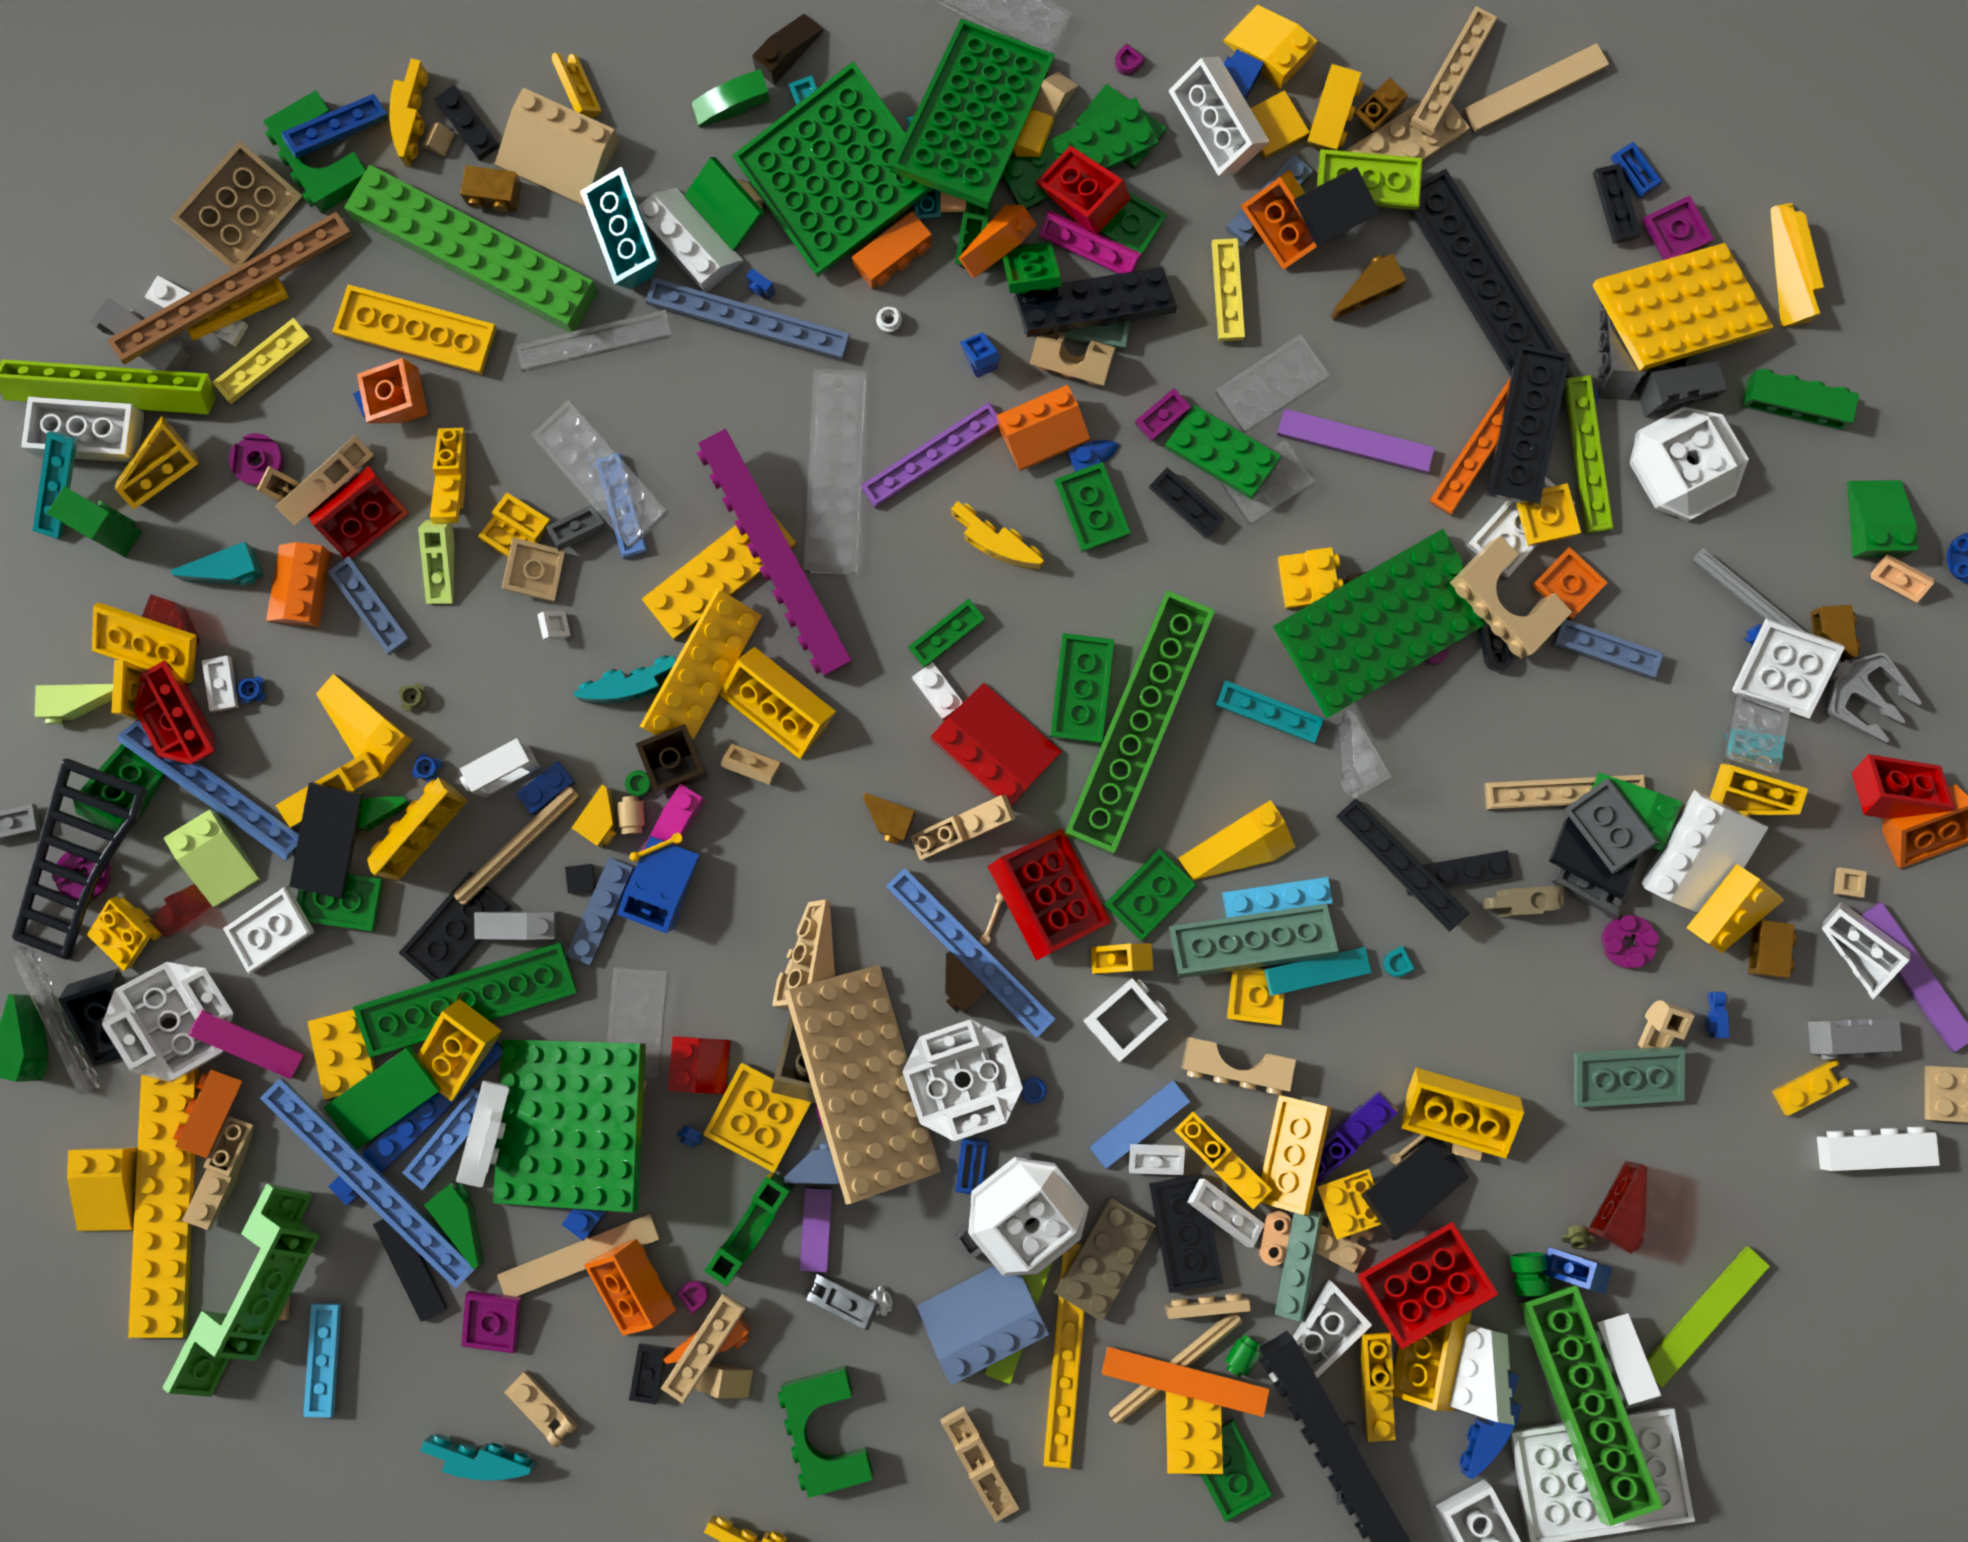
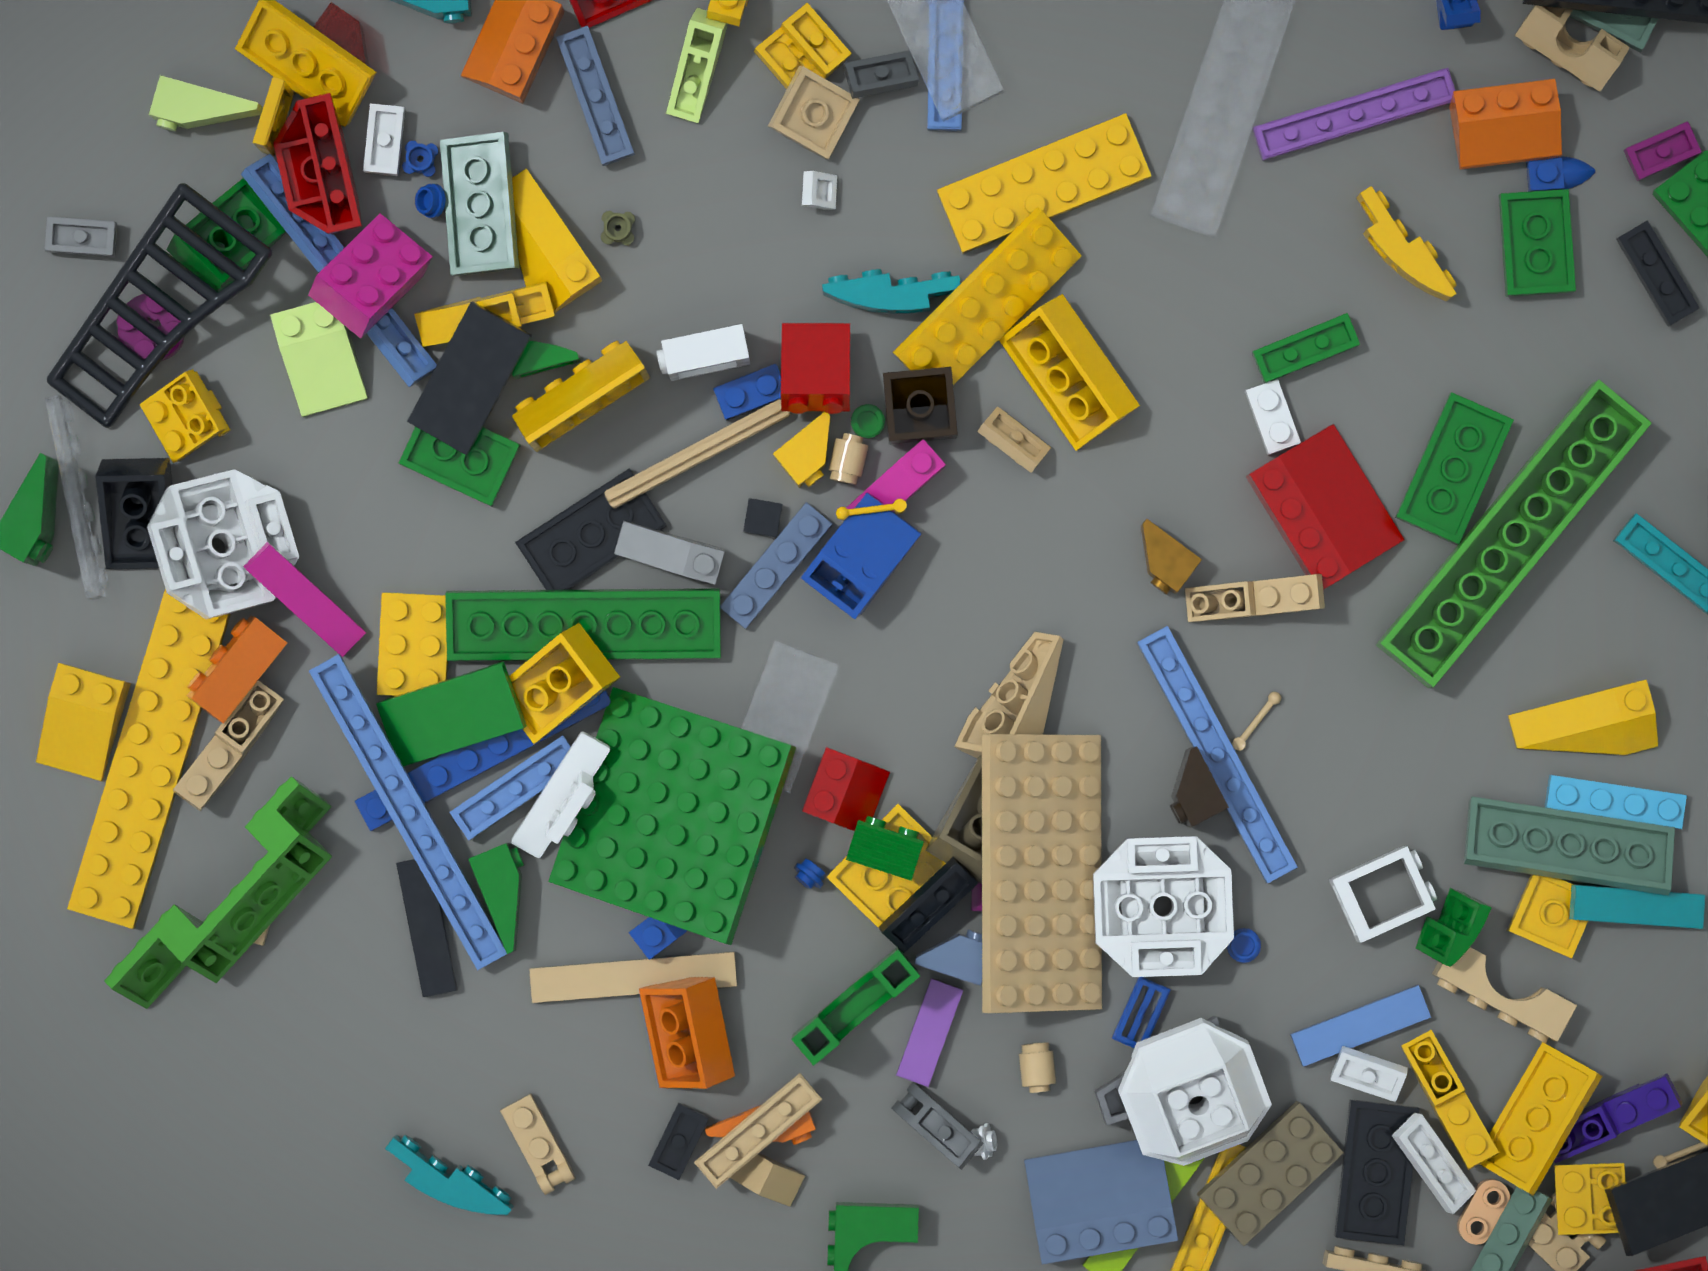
camera: 20 degrees right, 5 degrees up
(180, 910) = (261, 408): clear red slope -> none
(230, 786) = (370, 275): none -> dark pink brick
(266, 718) = (430, 200): none -> blue plate
(268, 930) = (364, 466): white tile -> none
(303, 710) = (479, 204): none -> plate
(322, 1360) = (292, 1006): medium azure plate -> none
(423, 761) = (609, 313): blue plate -> none
(491, 1321) = (507, 1022): magenta plate -> none
(585, 755) = (815, 367): none -> red brick
(694, 1295) = (759, 1065): magenta tile -> none
(738, 1100) = (884, 848): none -> green brick
(774, 552) = (1122, 184): magenta brick -> none
(784, 1133) = (928, 905): none -> black plate
(904, 1231) = (1037, 1067): none -> tan brick
(1048, 894) = (1335, 712): red slope -> none
(1122, 958) = (1401, 818): yellow slope -> none
(1150, 894) = (1460, 750): green tile -> none
(1187, 1031) = (1455, 930): none -> green slope

